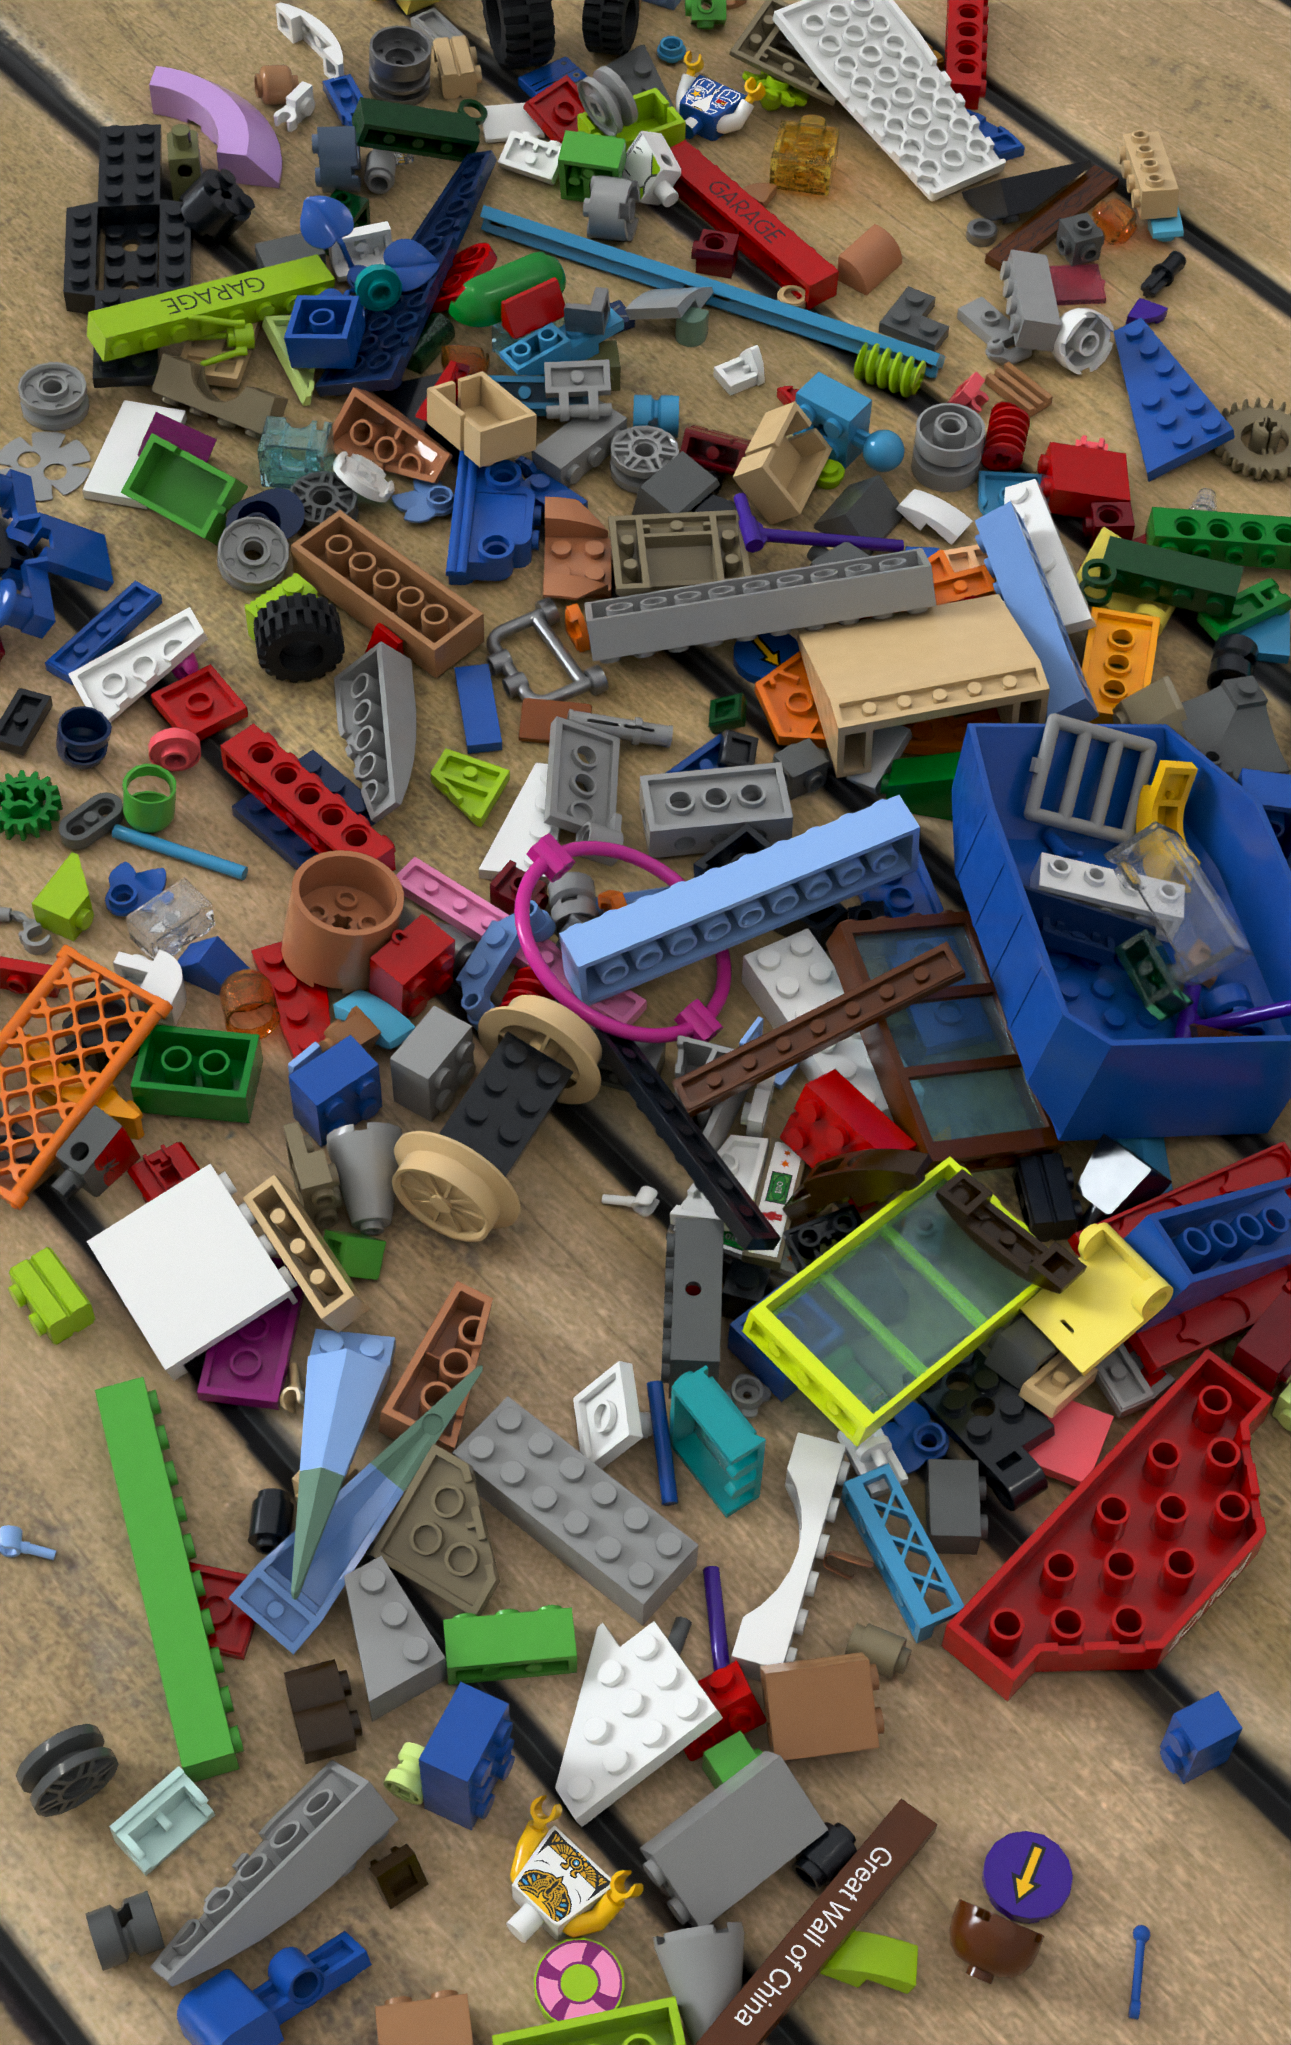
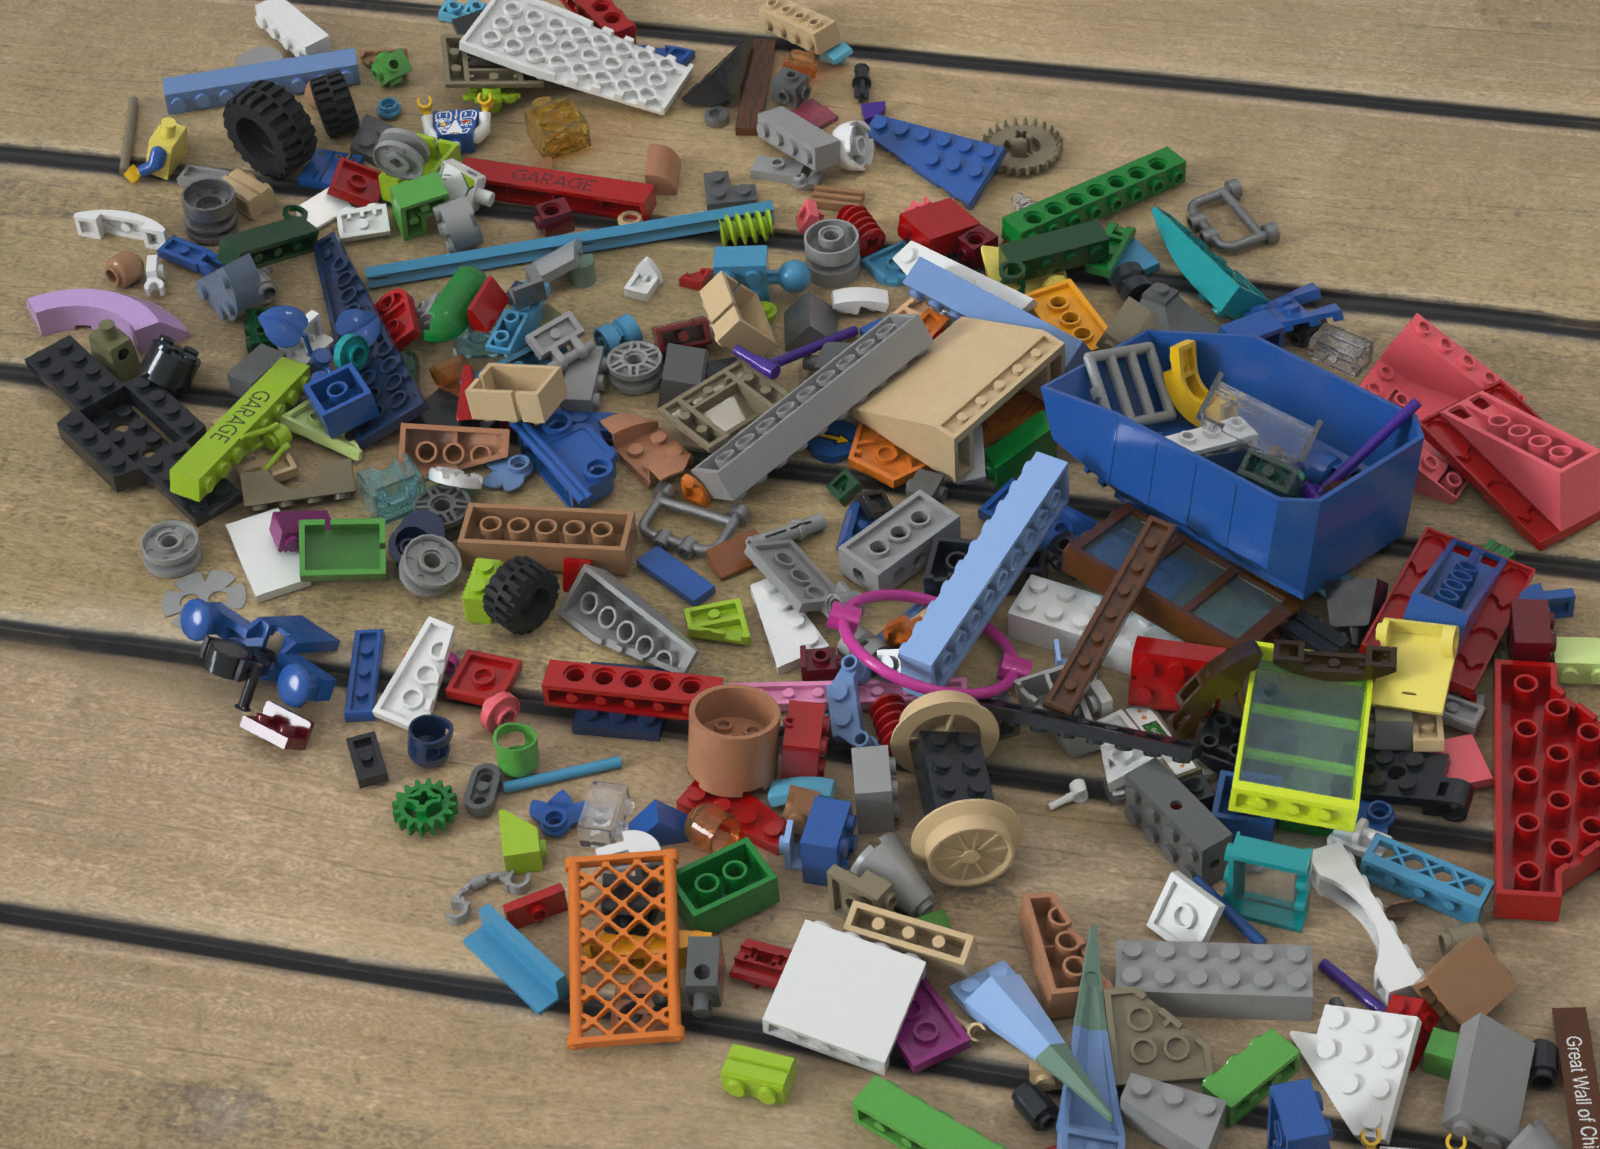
camera: 30 degrees left, 10 degrees down
(953, 1506) = (1429, 833): dark grey brick -> none

